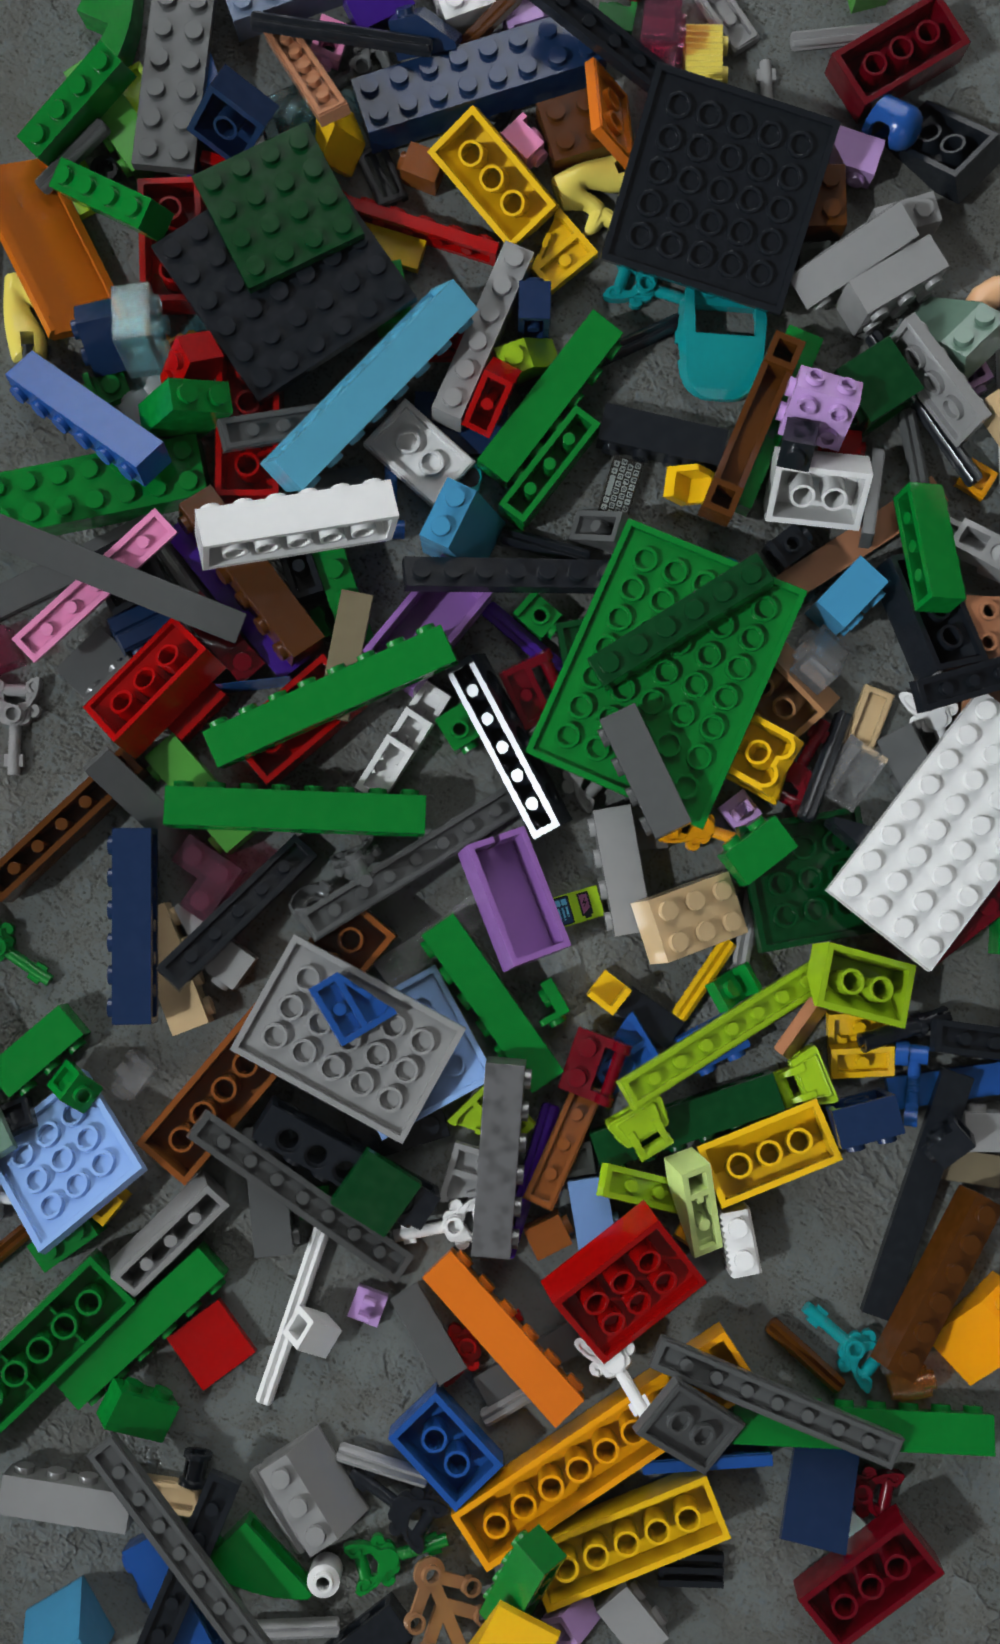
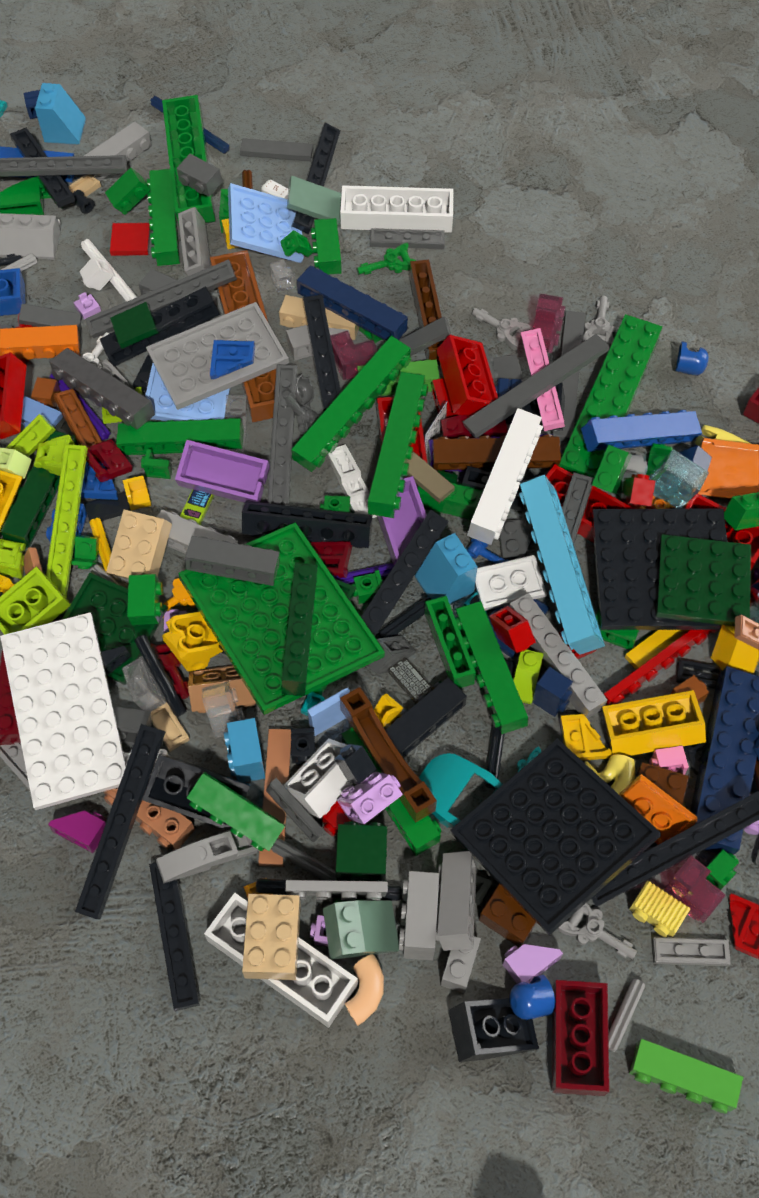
camera: 125 degrees right, 25 degrees down
(54, 1311) = (199, 175): none -> dark grey brick
(733, 538) = (326, 713): none -> light blue tile

